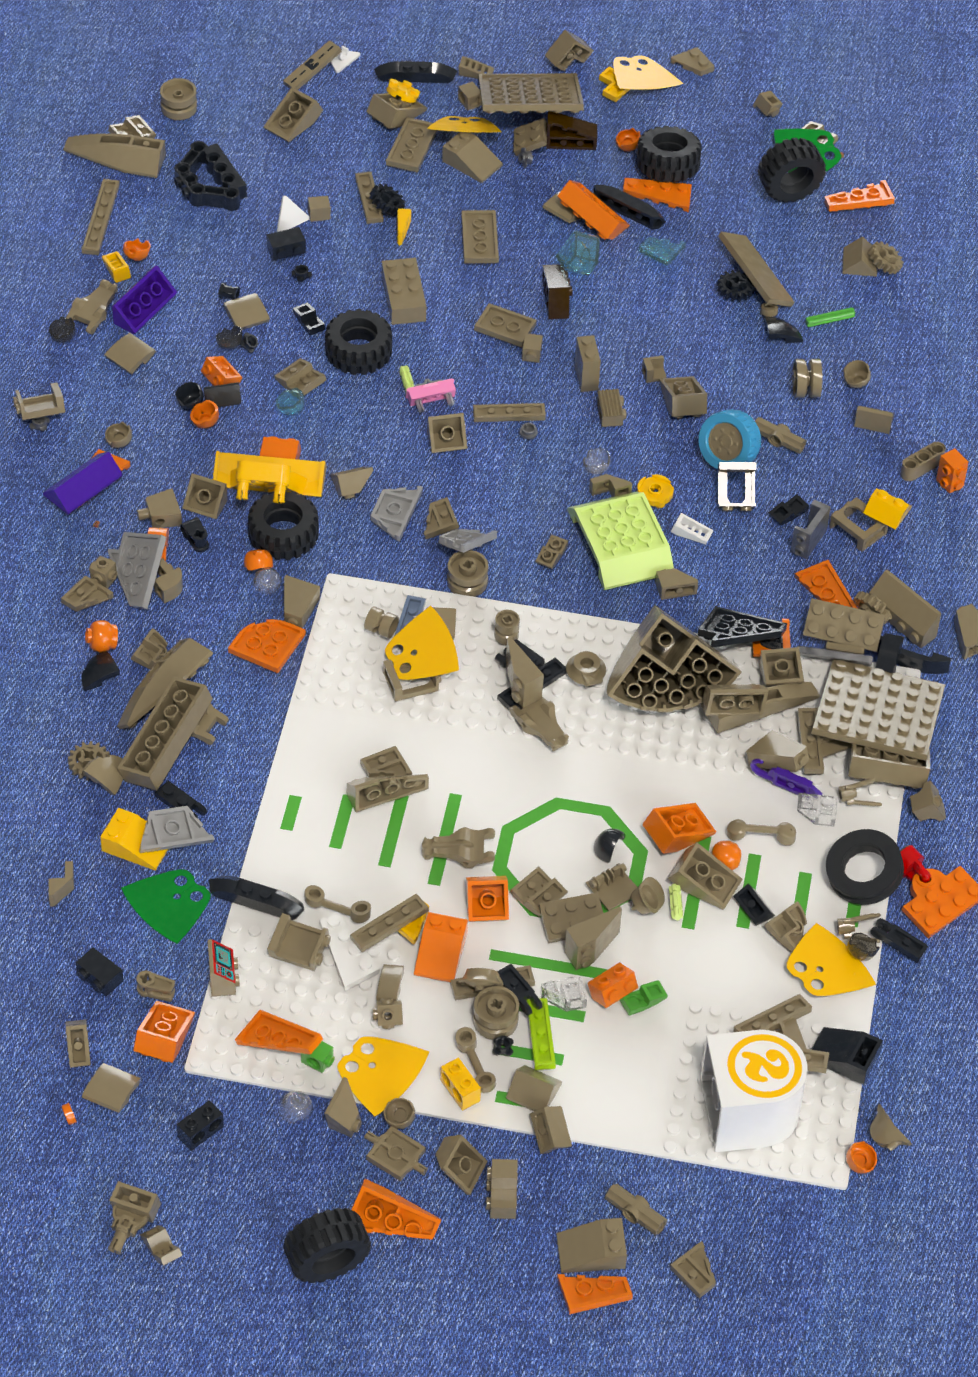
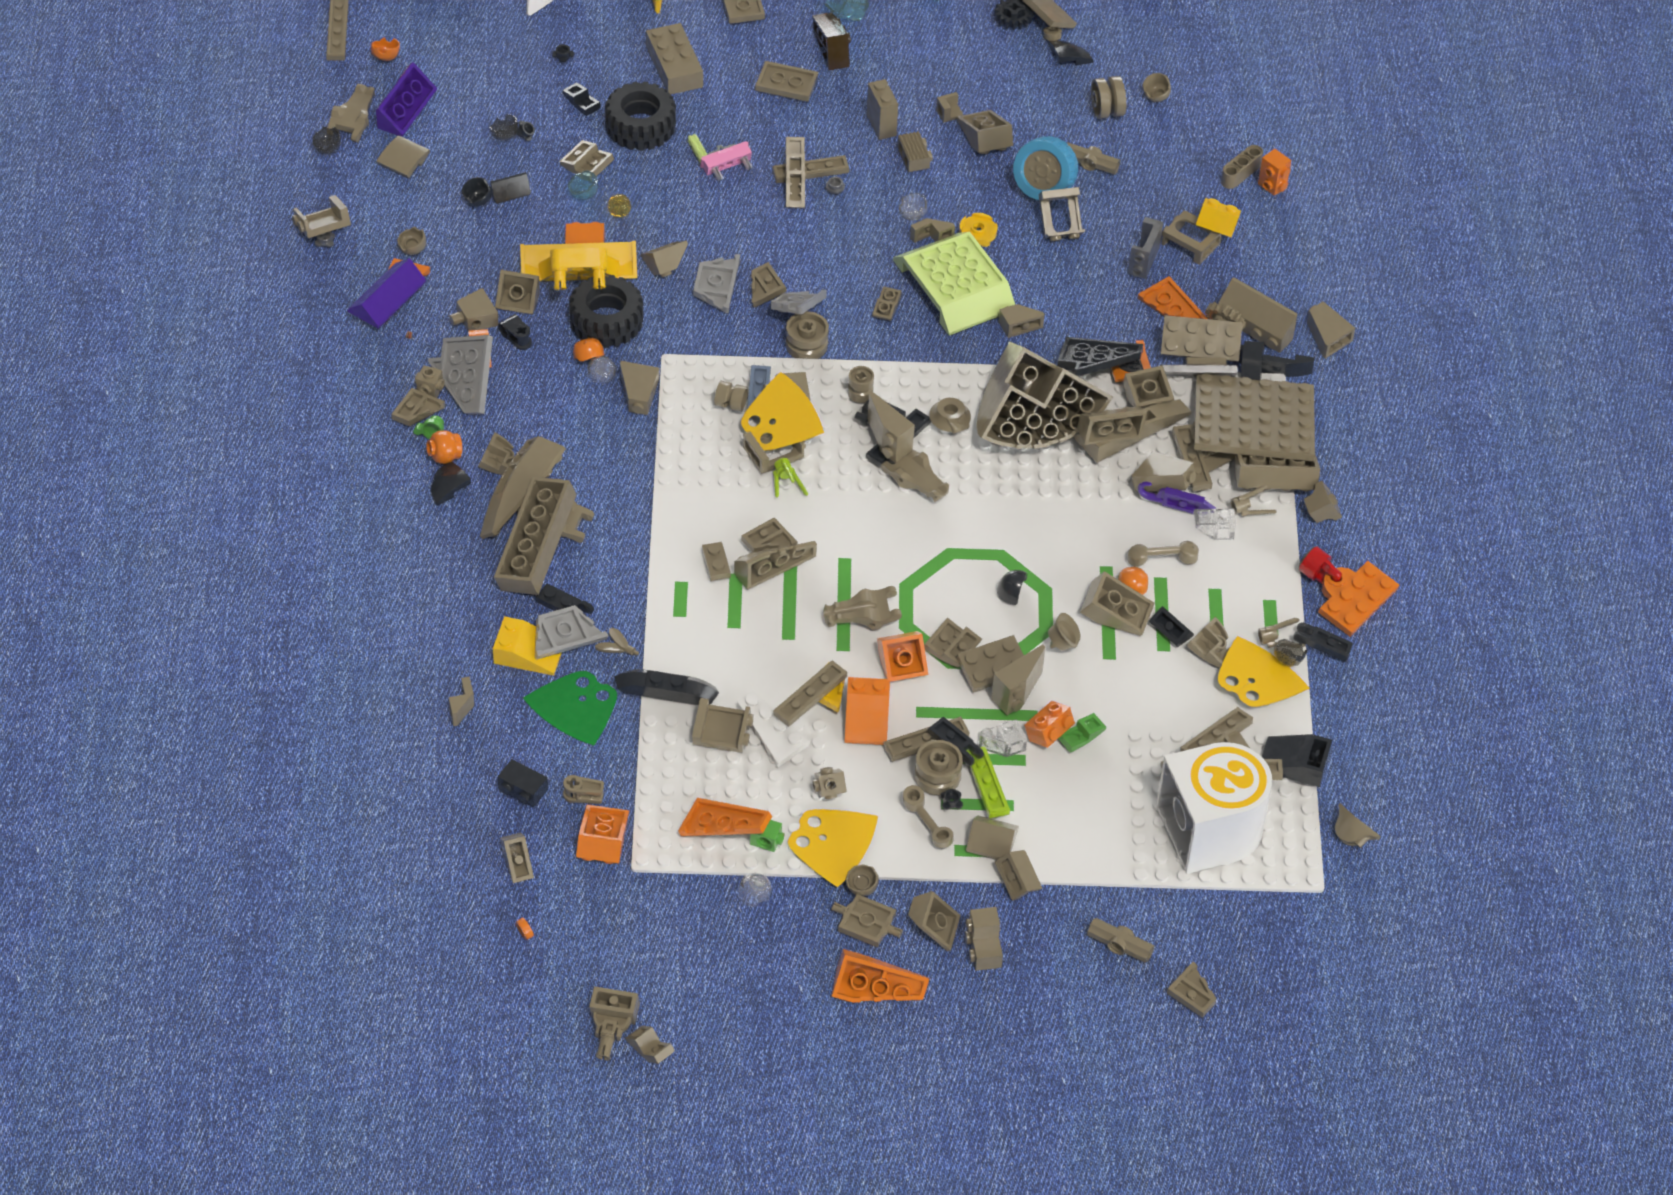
camera: 10 degrees left, 0 degrees up
(84, 755) = (460, 574): dark tan gear -> none
(94, 614) = (429, 426): none -> bright green piece
(105, 772) = (481, 583): dark tan brick -> none
(111, 1087) = (561, 897): dark tan slope -> none
(118, 268) = (368, 71): yellow slope -> none
(169, 583) = (500, 384): dark tan brick -> none
(200, 1125) = (662, 921): black brick -> none
(209, 416) = (498, 214): orange helmet -> none
(220, 371) = (501, 163): orange bracket -> none
(222, 969) = (649, 763): slope -> none
(223, 850) = (619, 646): none -> dark tan piece
(228, 291) = (492, 81): black bush -> none
(247, 311) = (515, 98): dark tan slope -> none
(267, 643) = (616, 432): orange plate -> none
(286, 243) = (540, 24): black brick -> none
(320, 425) = (619, 205): none -> clear yellow piece
(327, 1245) = (823, 1018): black tyre -> none
(332, 781) = (716, 561): none -> dark tan plate
(342, 1111) = (807, 886): dark tan slope -> none
(359, 912) = (776, 686): dark tan piece -> none
(390, 982) = (823, 752): dark tan slope -> none
(416, 701) = (785, 471): none -> lime plant
(446, 432) = (752, 197): dark tan slope -> none
(460, 1083) = (918, 842): yellow brick -> none
(481, 978) = (917, 735): dark tan piece -> none
(492, 414) = (795, 172): none -> dark tan slope
(532, 348) = (820, 100): dark tan brick -> none
(591, 1293) = (1093, 1028): orange wing -> none
(593, 1247) = (1086, 982): dark tan slope -> none
(612, 886) = (1026, 627): dark tan hinge -> none
(676, 902) = (1093, 634): yellowish green axle -> none
(677, 827) = (1078, 560): orange slope -> none
(682, 529) = (1017, 262): white slope -> none
(789, 511) = (1118, 232): black slope -> none
(830, 317) = (1116, 33): bright green axle -> none
(858, 842) = (1275, 548): black tyre -> none
(861, 1157) = (1333, 858): orange hair -> none
(874, 419) = (1183, 131): dark tan slope -> none

